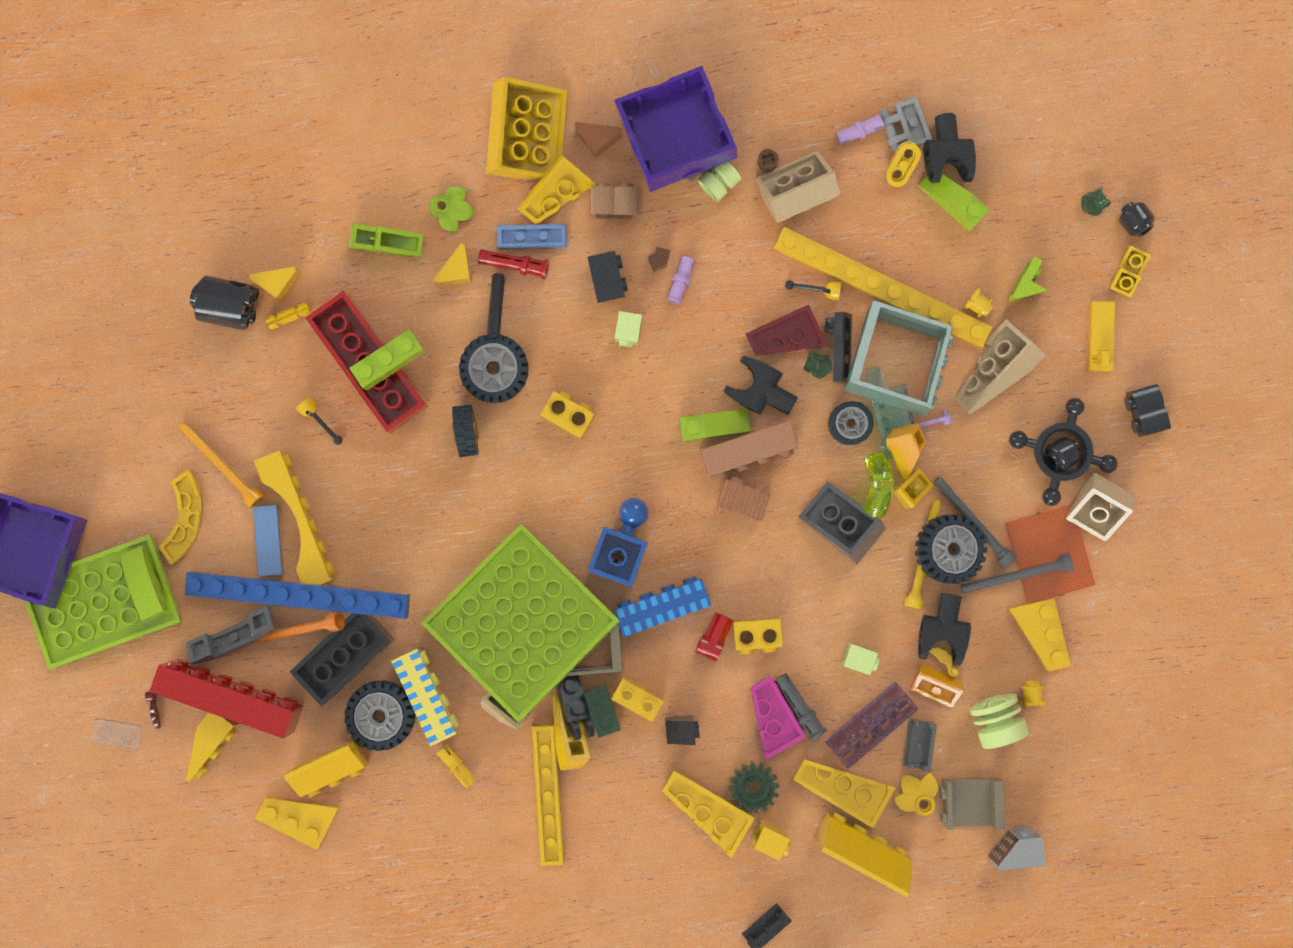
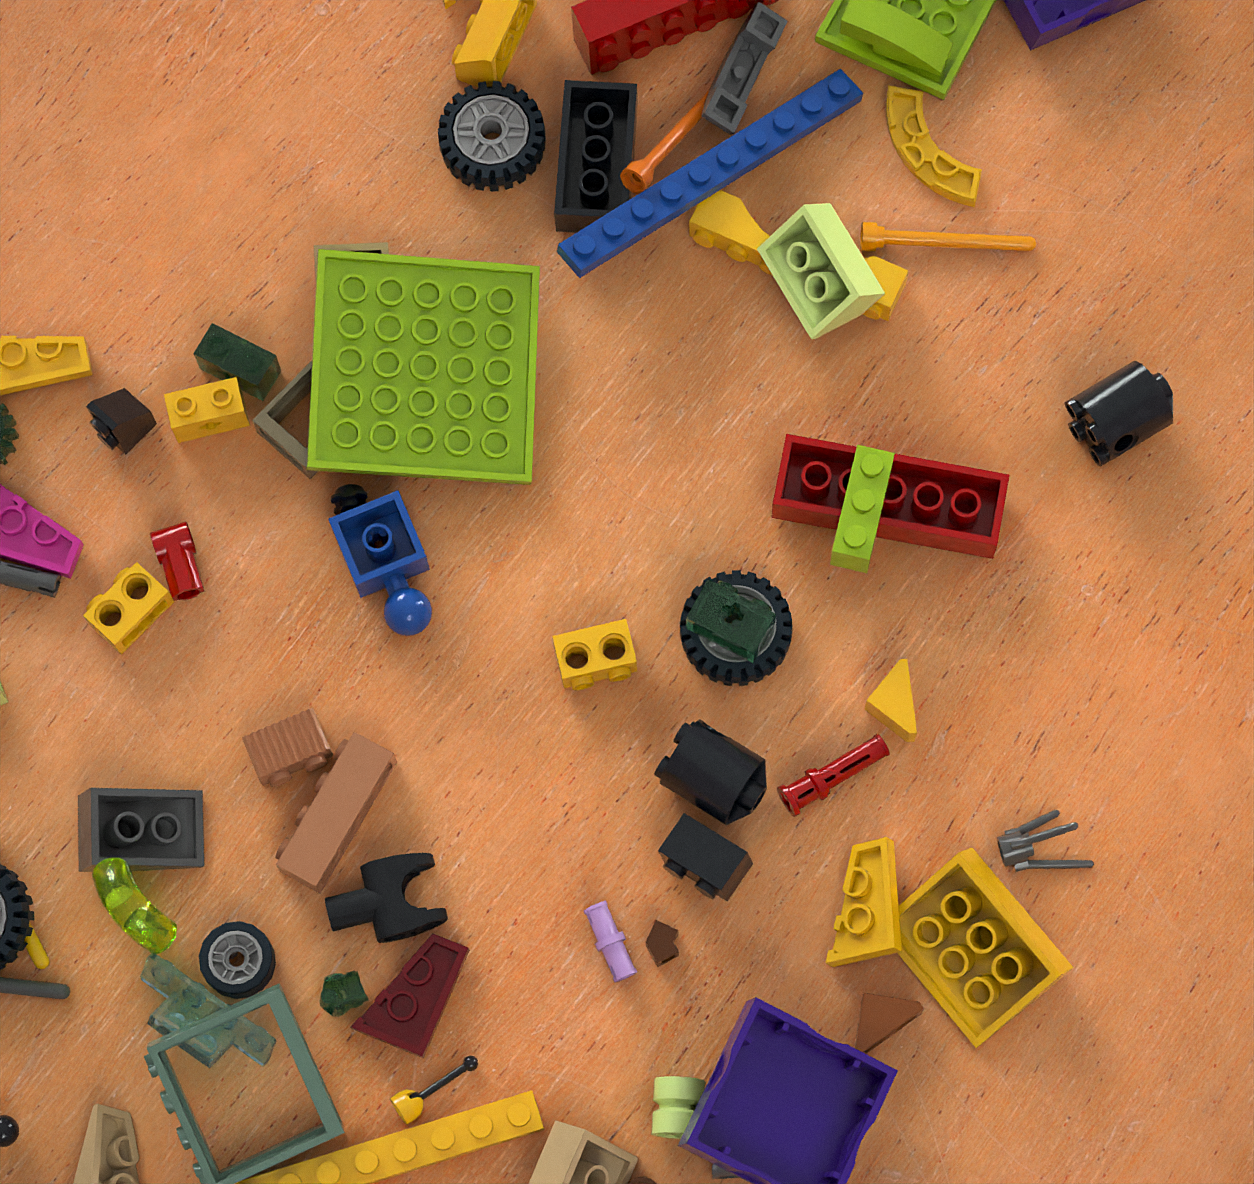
camera: 140 degrees right, 15 degrees down
(268, 540) = (790, 192): medium blue tile -> none
(277, 281) = (1088, 491): yellow slope -> none
(288, 315) = (1037, 470): yellow axle -> none
(294, 495) = (820, 269): none -> yellowish green slope
(308, 408) = (906, 388): hinge -> none
(385, 240) = (1011, 657): lime slope -> none
(425, 696) = (459, 200): light yellow brick -> none
(455, 208) = (968, 774): lime plate -> none
(456, 766) = (351, 159): yellow axle -> none
(465, 430) = (697, 520): black wheel -> none
(466, 155) = (1017, 845): none -> dark grey plant
(495, 305) = (804, 700): black axle -> none
(495, 353) = (742, 636): none -> clear green brick
(531, 236) = (843, 827): medium blue tile -> none
(547, 795) = (217, 222): yellow tile -> none
(567, 308) = (714, 773): none -> black cylinder
(569, 752) = (255, 306): yellow slope -> none
(575, 706) = (271, 333): black hinge -> none
(611, 592) = (348, 497): none -> black plate
(614, 201) = (783, 960): medium nougat brick -> none
(628, 329) = (619, 821): yellowish green brick -> none
(662, 607) = (273, 537): blue brick -> none
(714, 425) = (406, 802): lime slope -> none
(842, 328) = (353, 1066): black hinge -> none
(906, 446) = (139, 987): light orange slope -> none
(913, 489) = (86, 949): yellow slope -> none
(945, 420) = (119, 1075): lavender piece -> none

